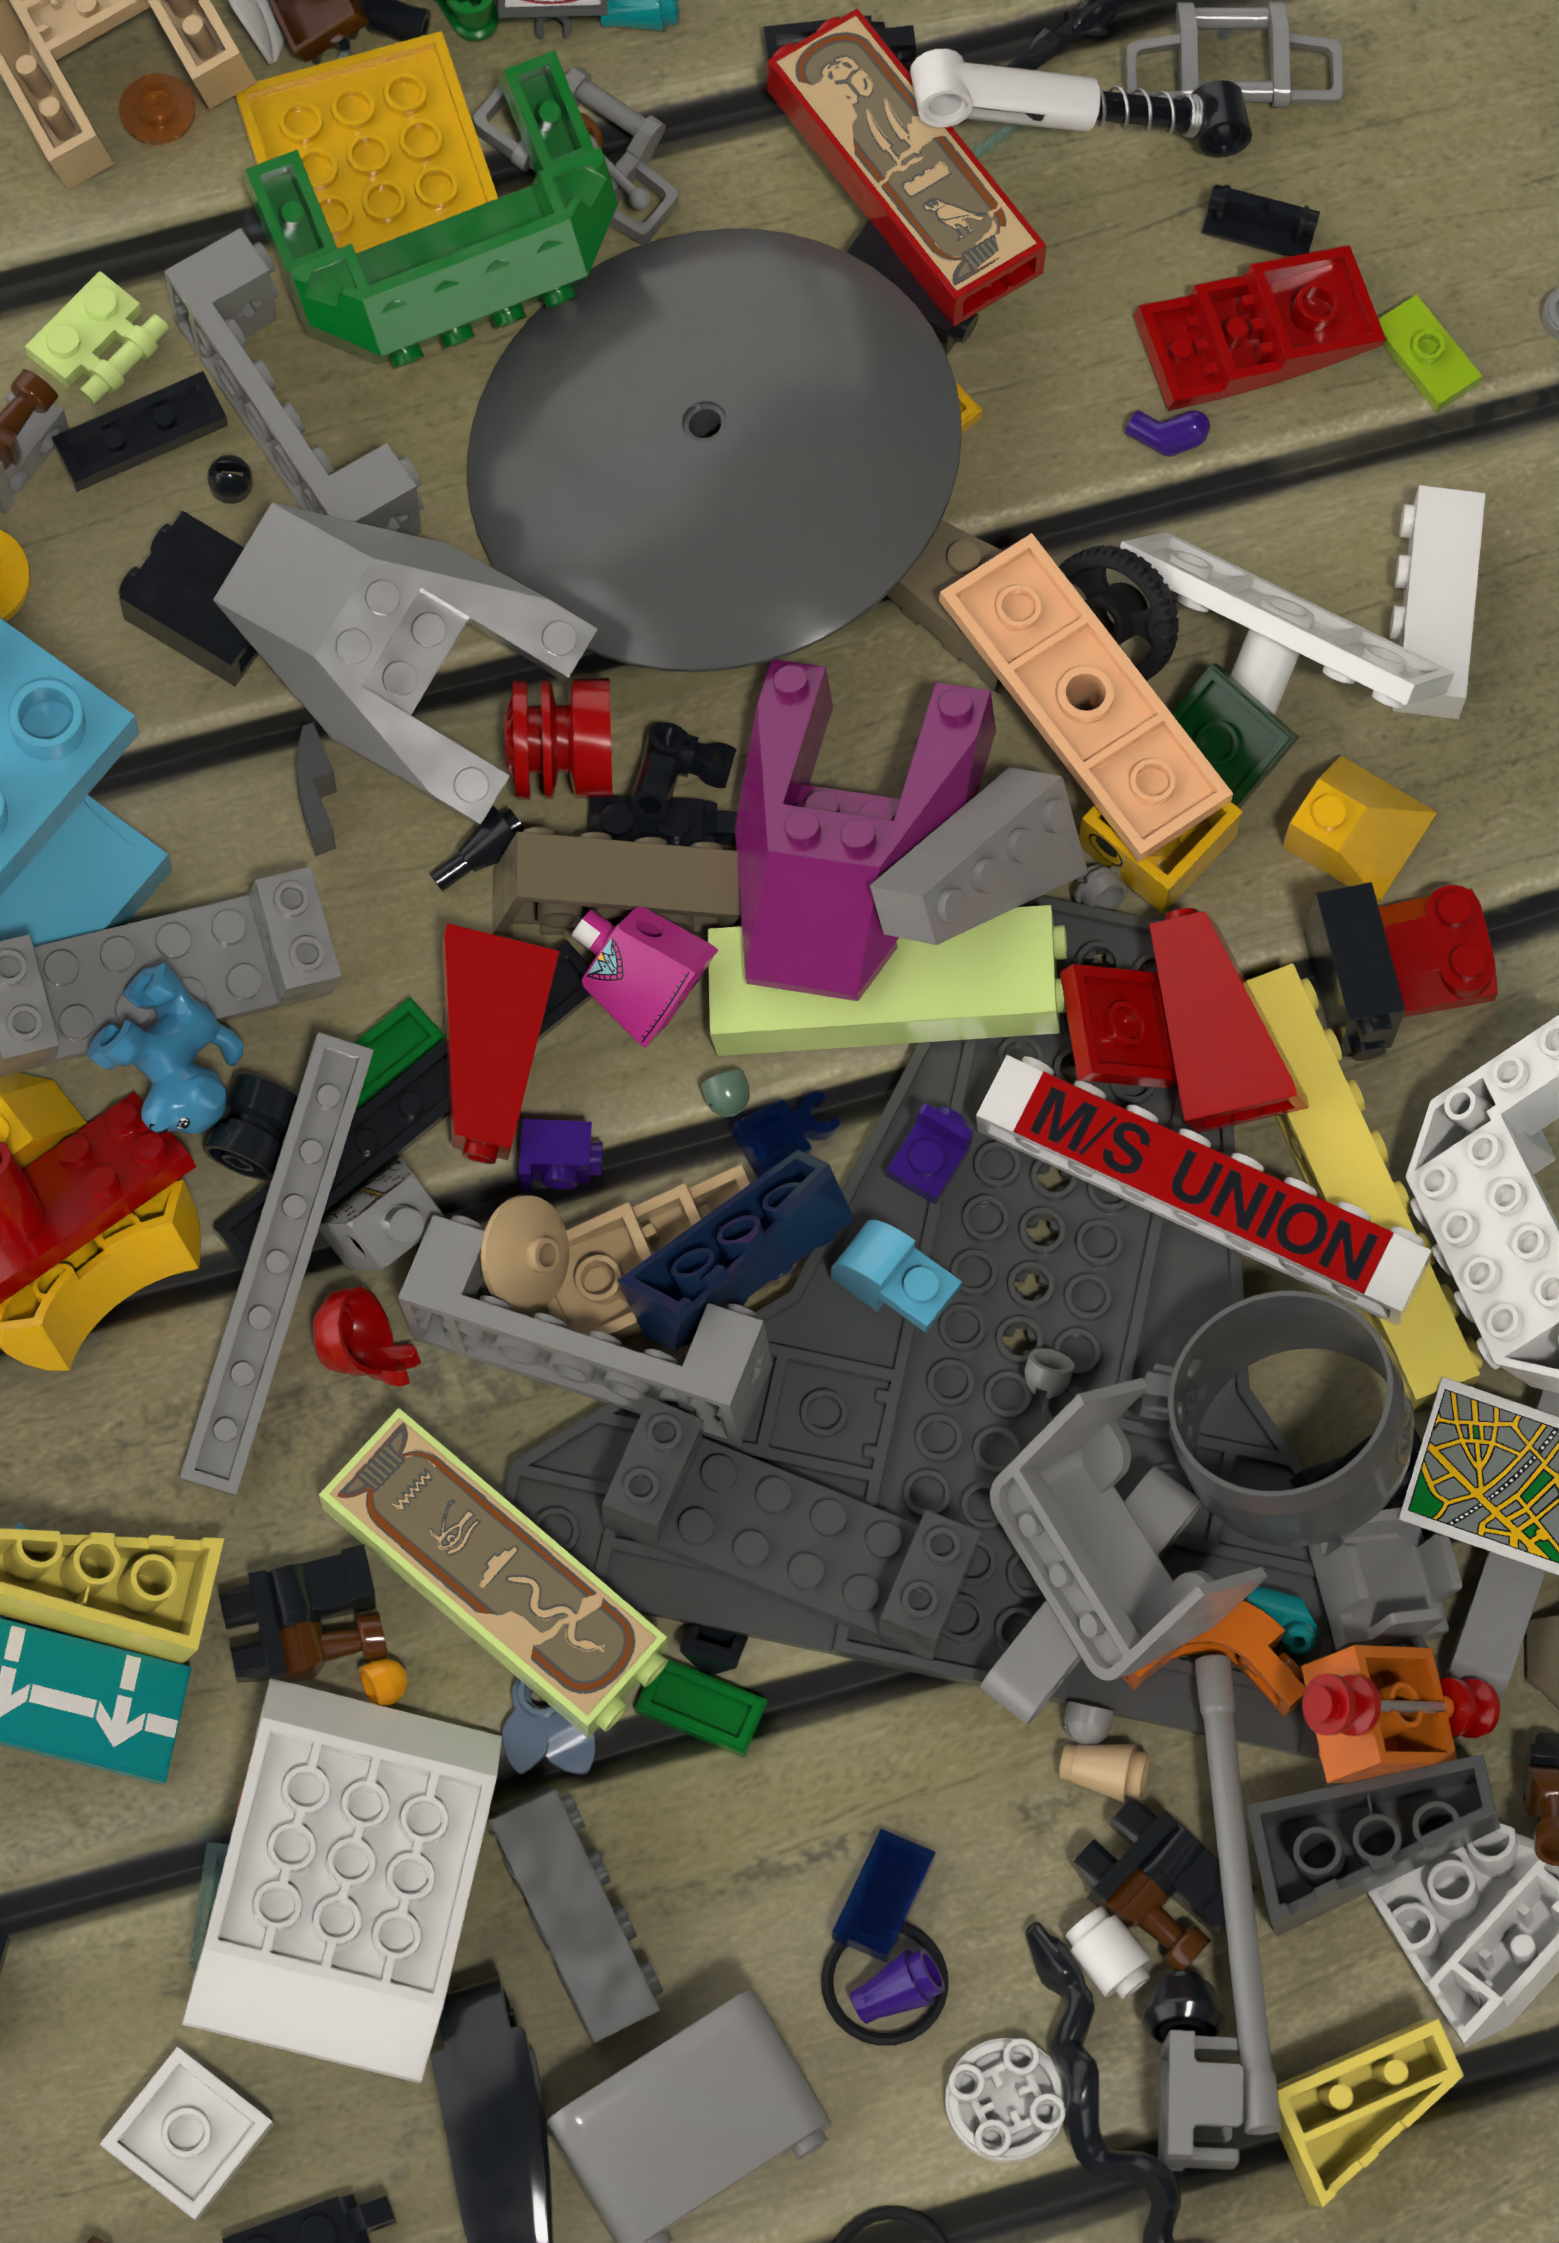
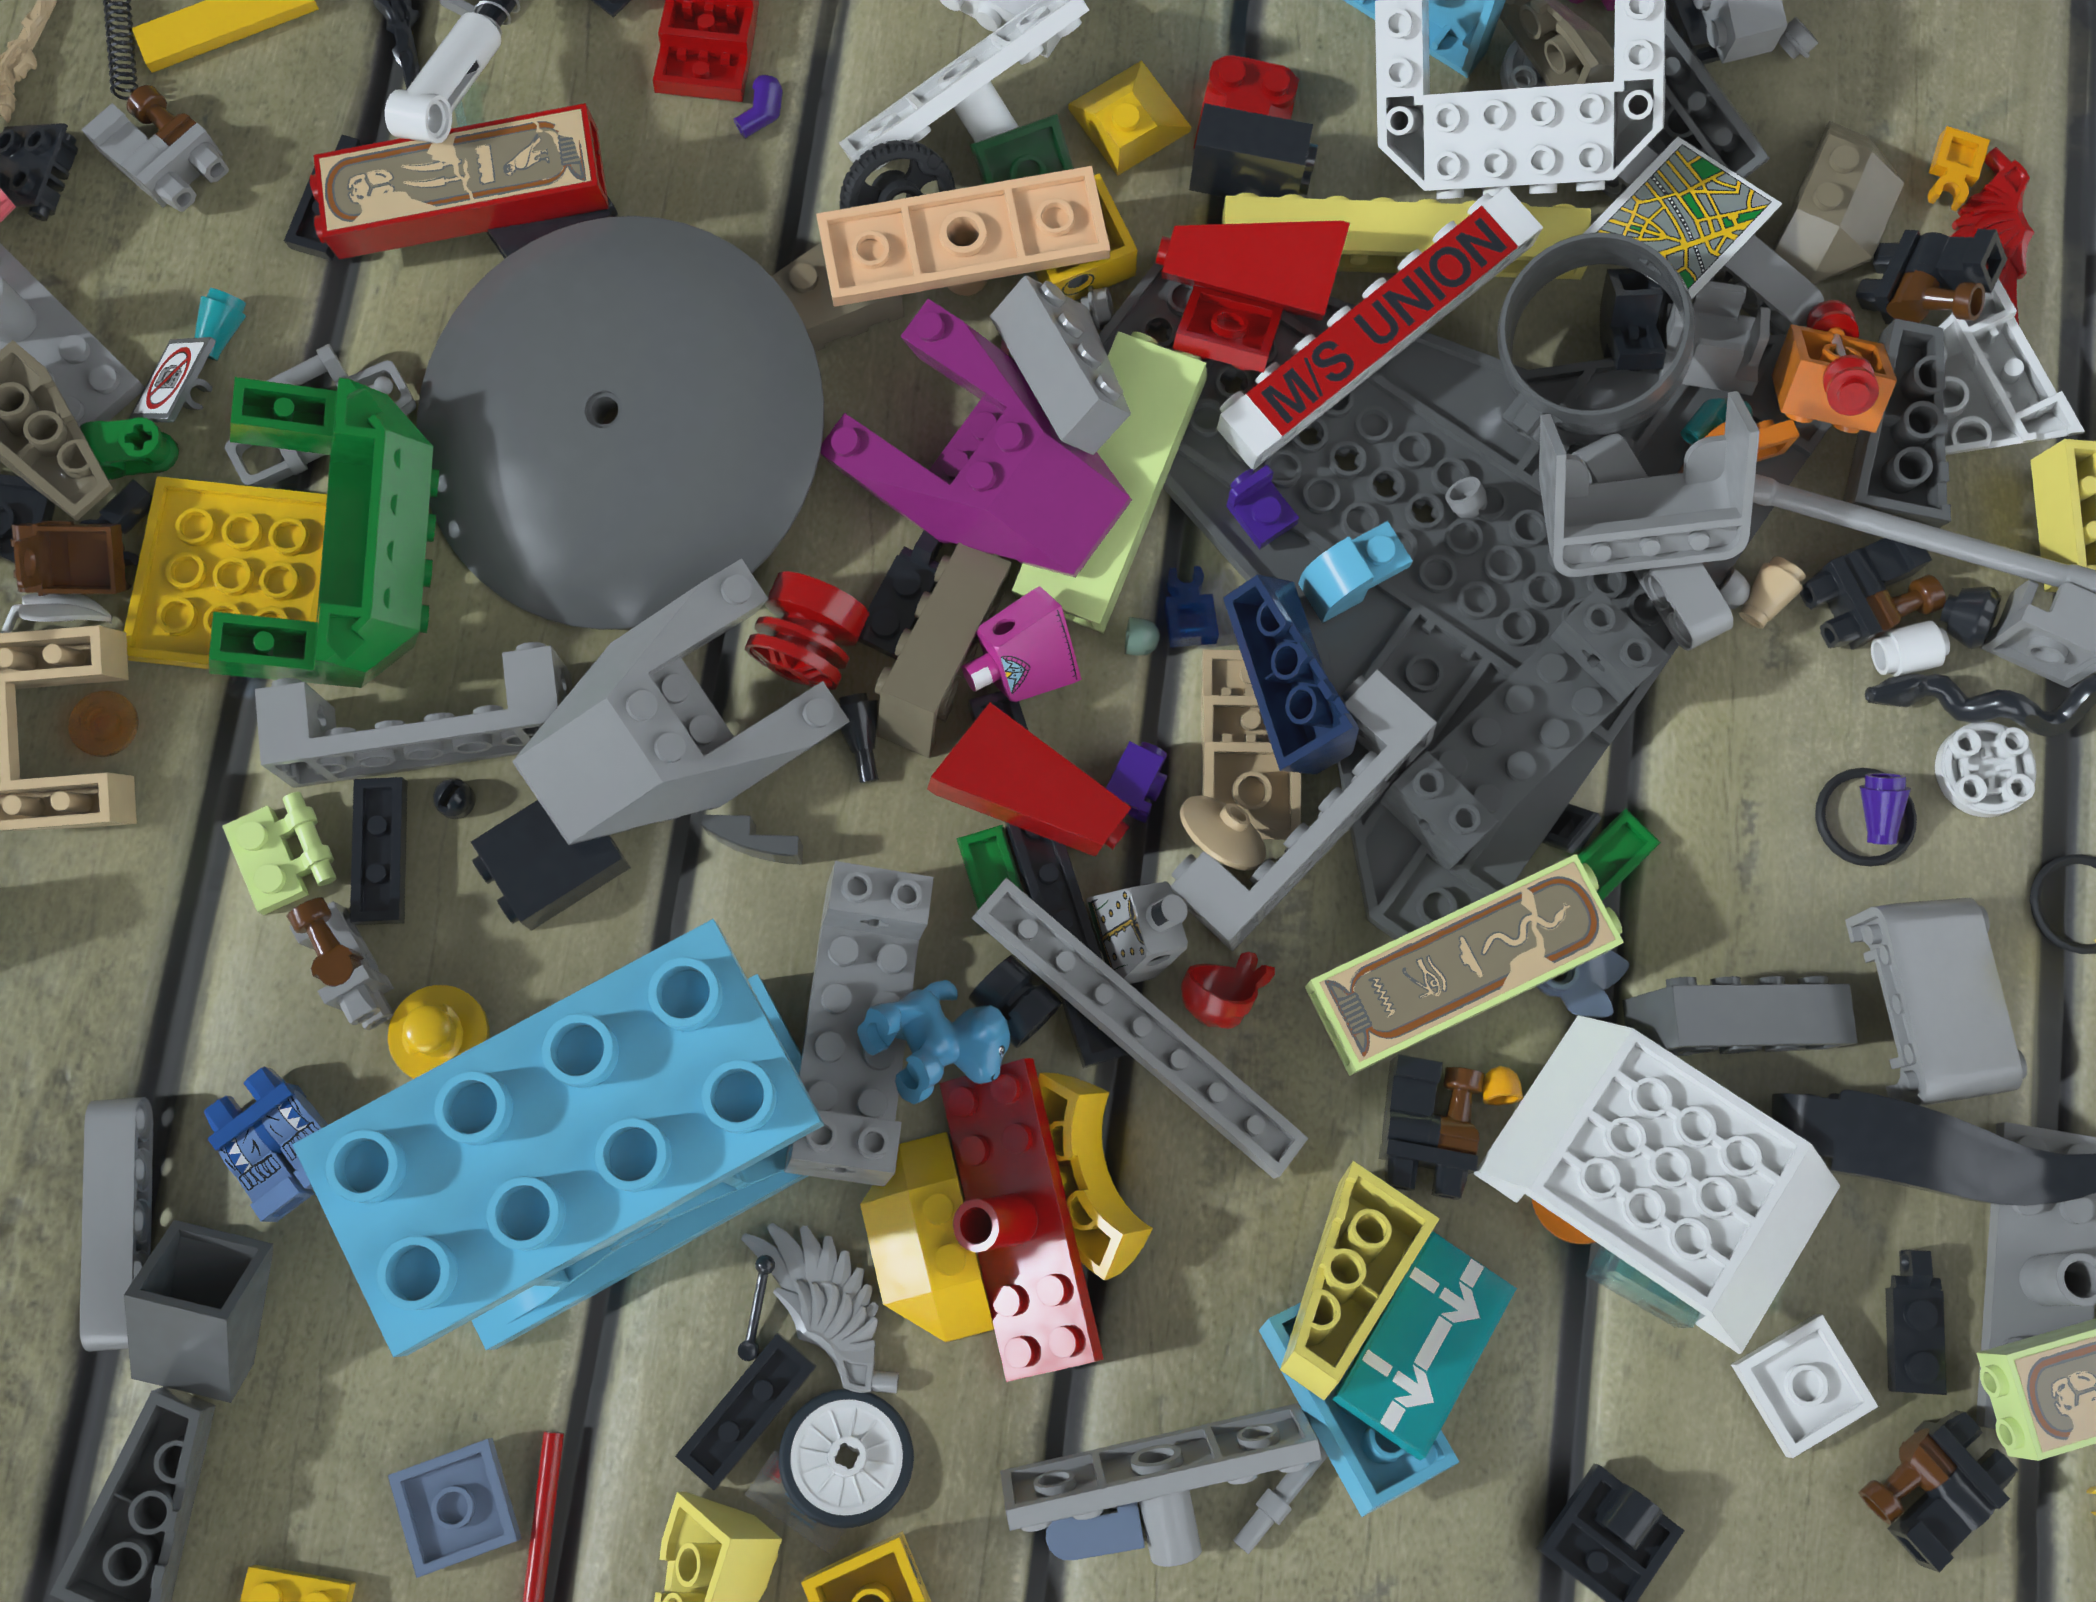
camera: 65 degrees left, 5 degrees up
(672, 754) = (853, 566): black bar -> none
(883, 1895) = (1806, 788): clear blue tile -> none

